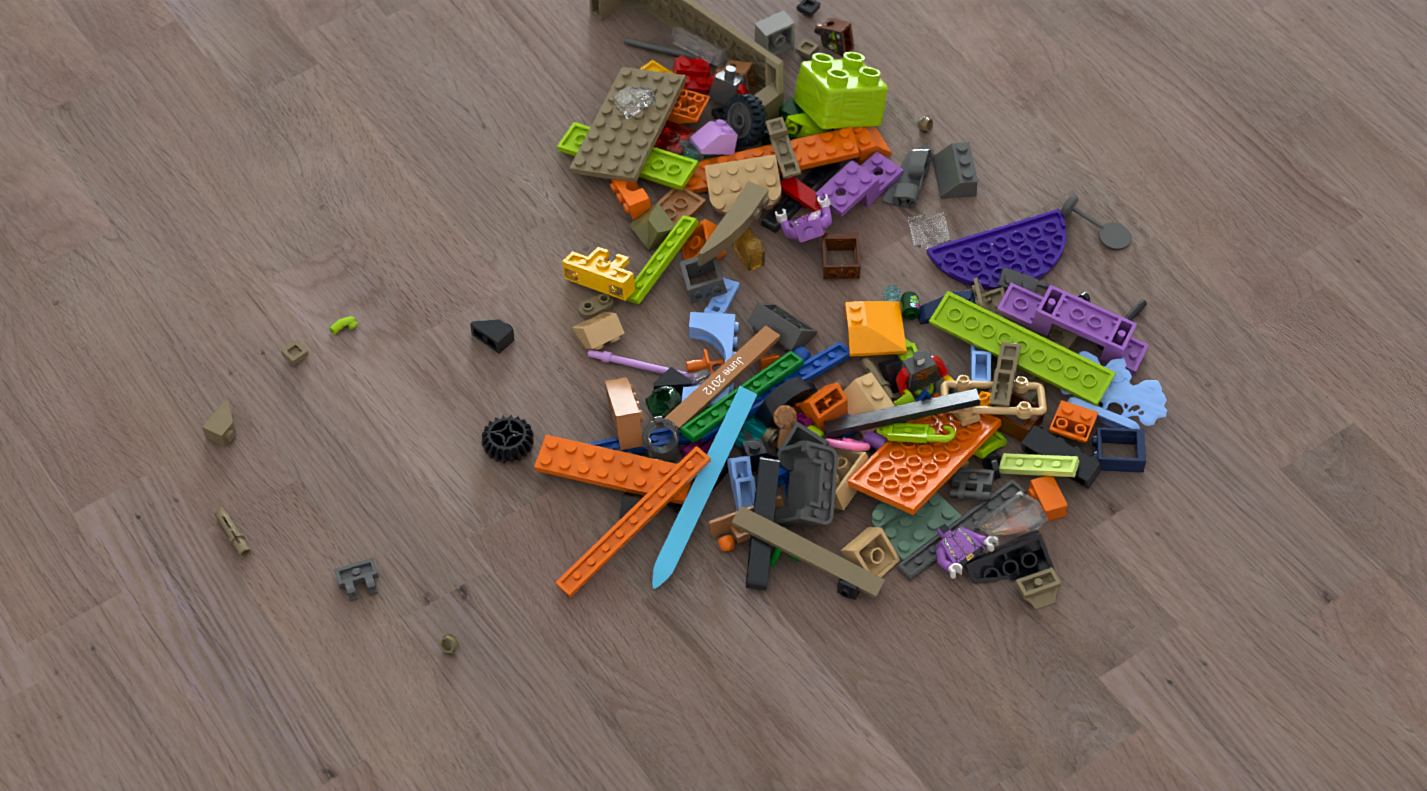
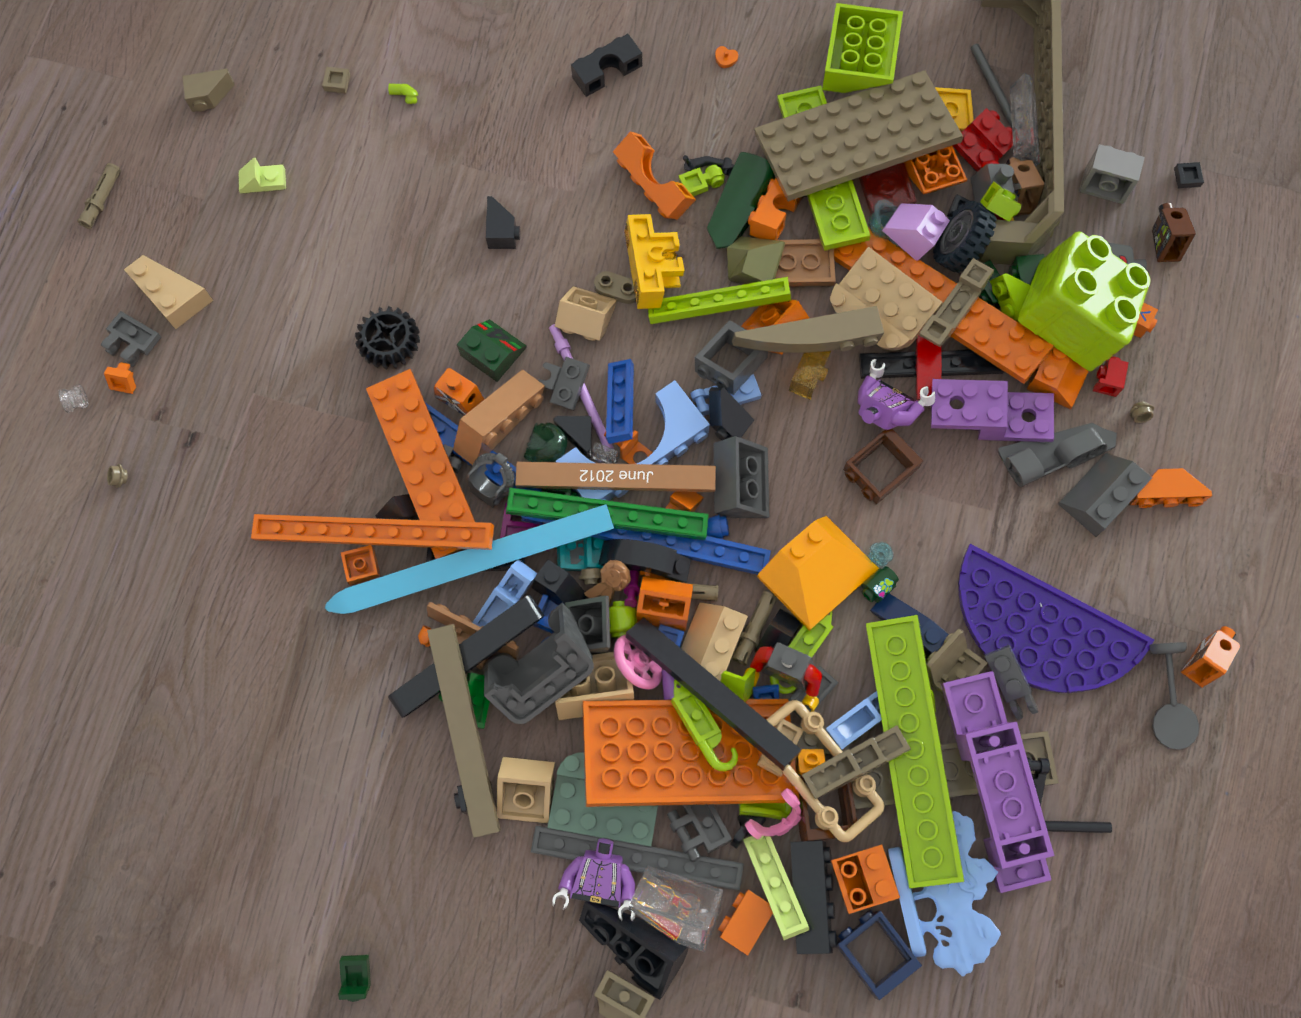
camera: 50 degrees right, 20 degrees up
(318, 437) = (261, 178): none -> yellowish green slope
(346, 534) = (170, 292): none -> tan wedge
(368, 634) = (73, 398): none -> clear wheel
(383, 599) = (120, 378): none -> orange tile
(439, 222) = (620, 54): none -> black arch
(501, 155) = (726, 58): none -> orange piece
(556, 215) = (725, 164): none -> black piece
(569, 238) = (636, 157): none -> orange arch
(571, 220) = (697, 182): none -> lime plate
(572, 394) = (490, 348): none -> dark green slope
(574, 85) = (862, 48): none -> lime slope
(584, 423) = (456, 390): none -> orange torso
(603, 206) = (739, 198): none -> dark green panel
(633, 100) = (879, 115): clear slope -> none
(633, 367) = (566, 382): none -> dark grey plate
(645, 548) = (360, 565): none -> orange piece
(676, 346) = (620, 401): none -> blue plate
(736, 302) = (727, 415): none -> black slope
(744, 85) = (1001, 202): none -> lime brick
(806, 48) = (1129, 218): dark tan plate -> none
(893, 122) = (1111, 377): none -> red brick
(905, 714) = (354, 977): none -> dark green bracket
(929, 230) = (1001, 526): clear slope -> none
(983, 141) = (1171, 489): none -> orange slope
(1008, 432) = (783, 827): none -> bright pink piece
(1092, 186) = (1212, 657): none -> orange torso

